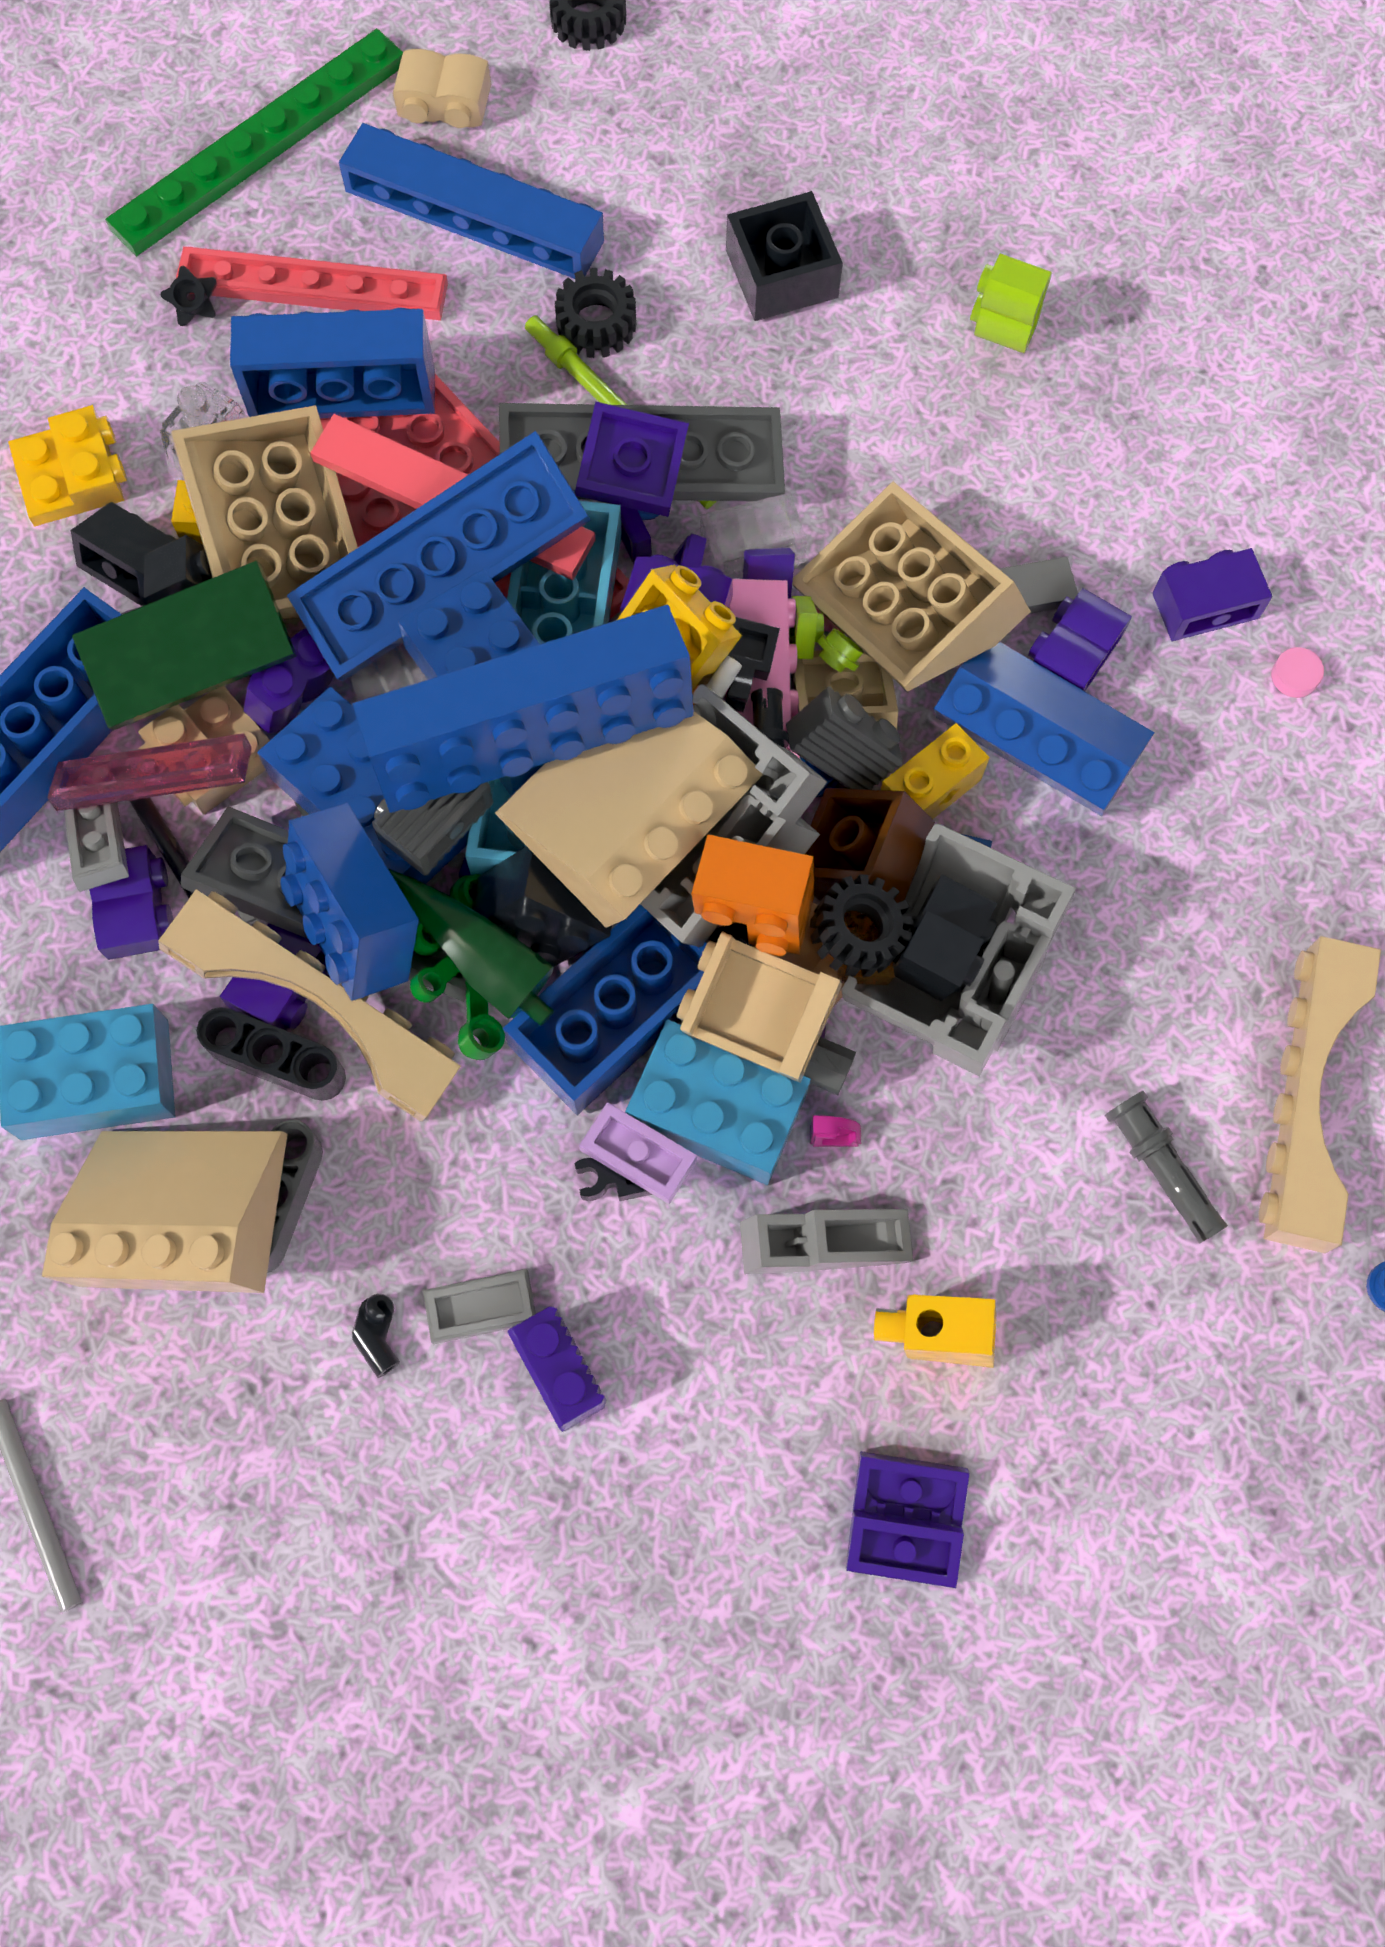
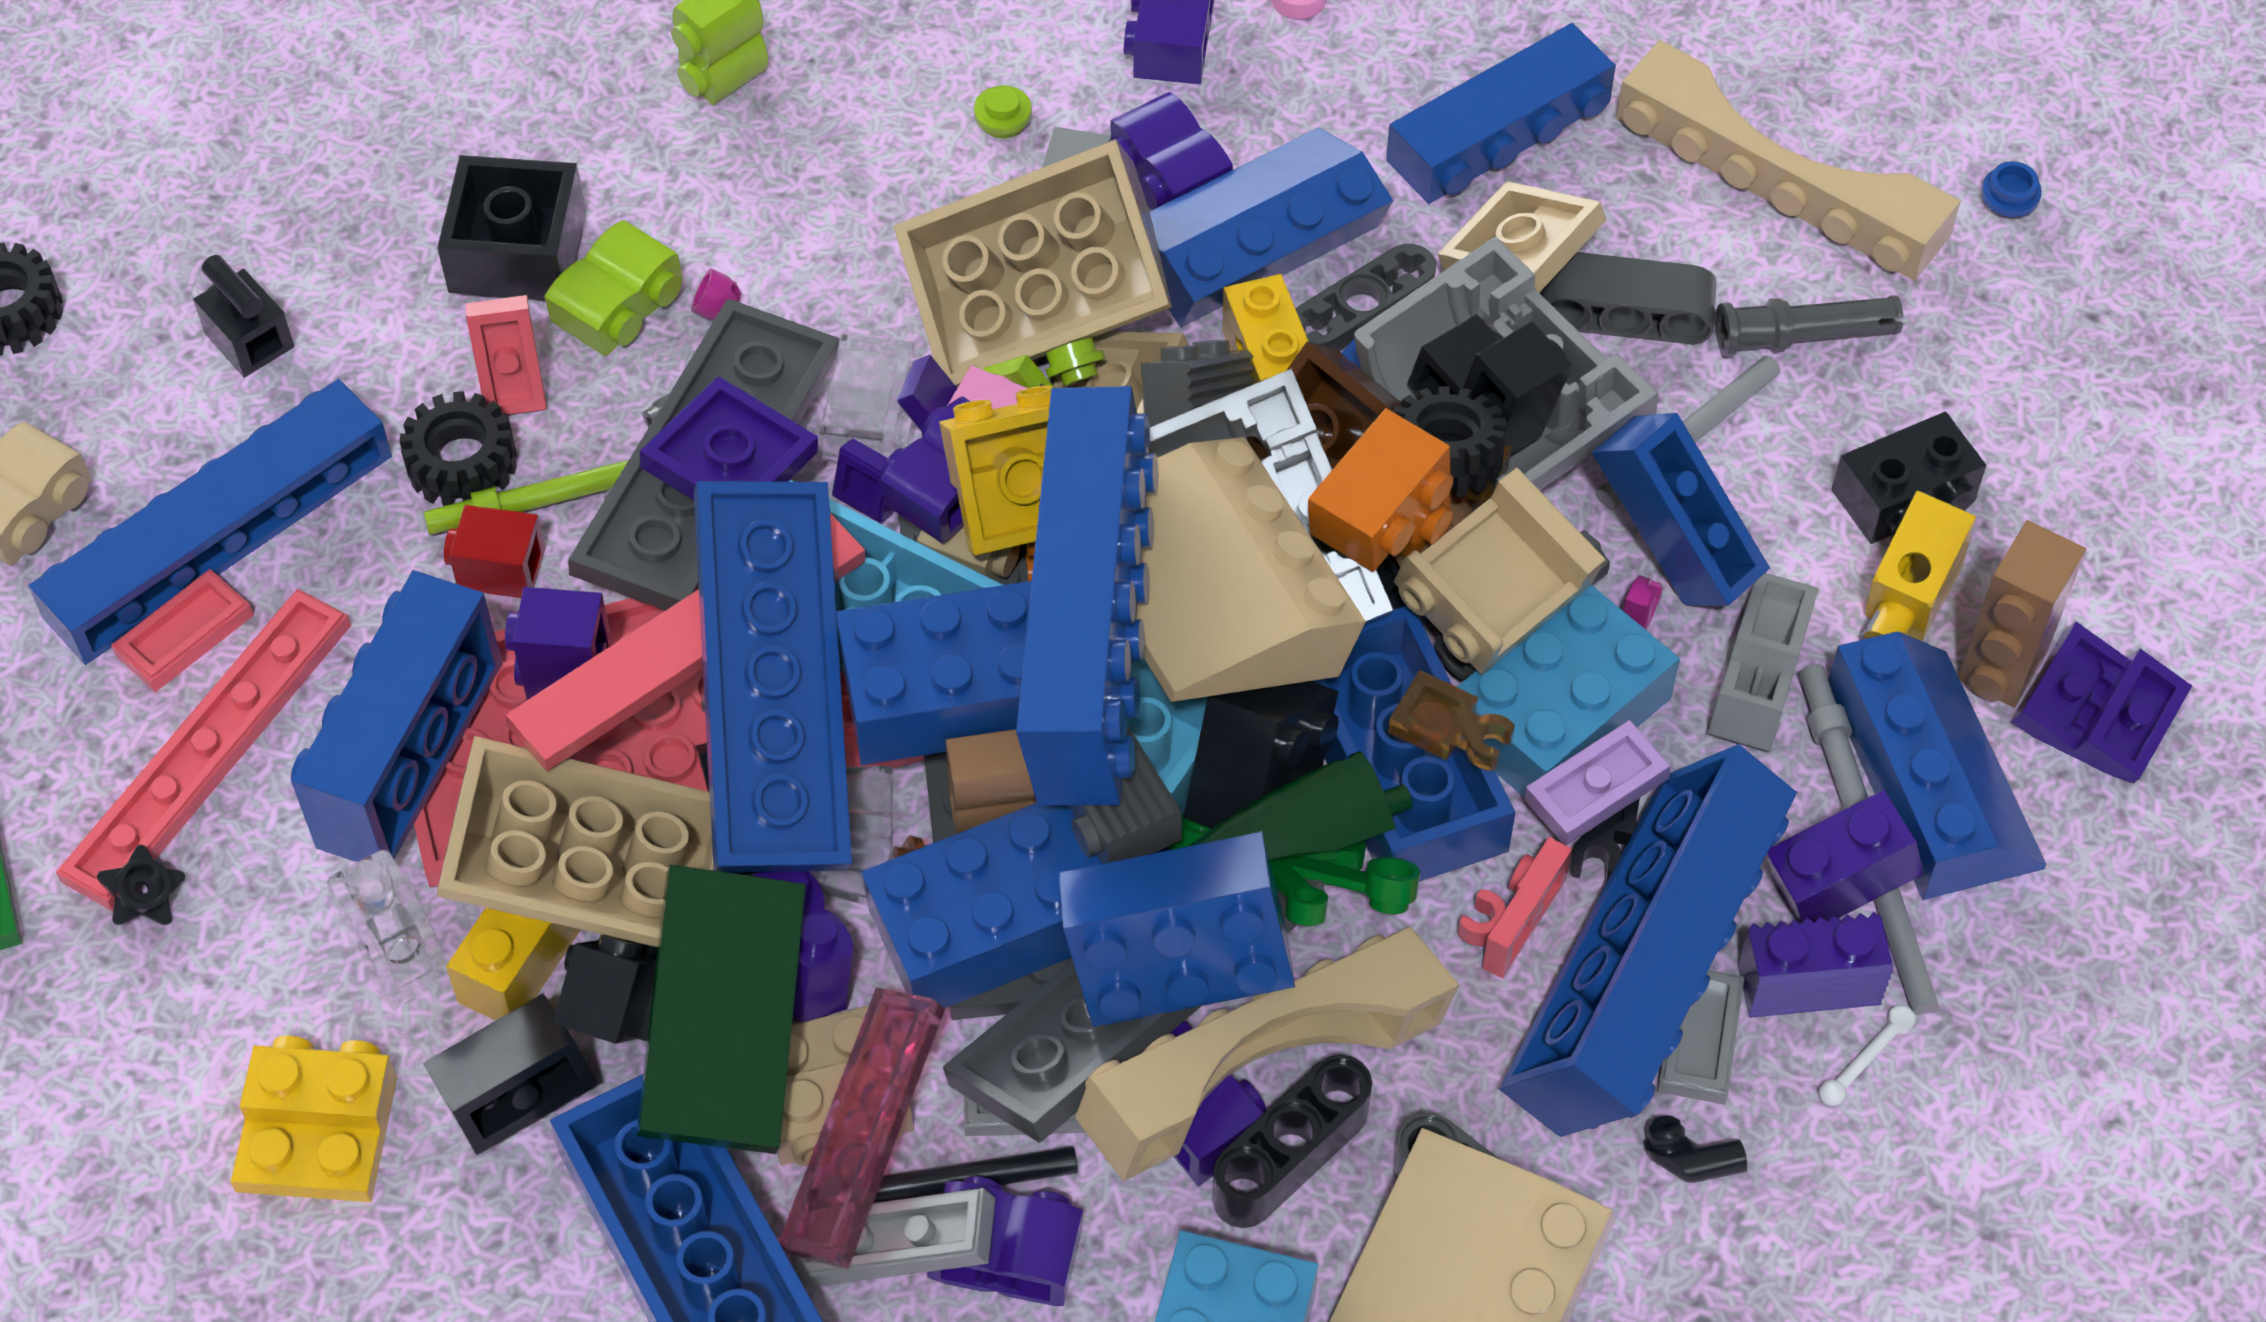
camera: 65 degrees left, 15 degrees down
(390, 229) = (182, 630): none -> coral tile
(428, 422) = (555, 635): none -> dark purple brick
(509, 1239) = (1650, 944): none -> blue brick
(522, 369) = (495, 550): none -> red brick
(547, 1143) = (1536, 886): none -> coral plate
(553, 1450) = (1899, 1021): none -> white hinge
(618, 1016) = (1444, 716): none -> clear orange plate
(633, 140) = (241, 318): none -> black brick
(650, 1360) = (1845, 860): none -> dark purple brick
(669, 299) = (506, 354): none -> coral plate
(773, 342) = (614, 288): none -> lime brick
(786, 1312) = (1832, 729): none -> light grey bar
(786, 1404) = (1933, 762): none -> blue slope
(801, 408) = (713, 293): none -> dark pink hinge
(901, 1124) = (1681, 510): none -> blue brick
(921, 1421) = (2020, 614): none -> medium nougat brick
(1014, 811) = (1372, 280): none -> dark grey beam
(1019, 1113) = (1715, 410): none -> light grey bar
(1047, 1297) = (1883, 476): none -> black brick
(1065, 517) = (1002, 111): none -> lime plate
(1118, 1021) = (1635, 298): none -> dark grey beam
(1120, 917) = (1534, 224): none -> tan plate
(1251, 862) = (1500, 113): none -> blue brick

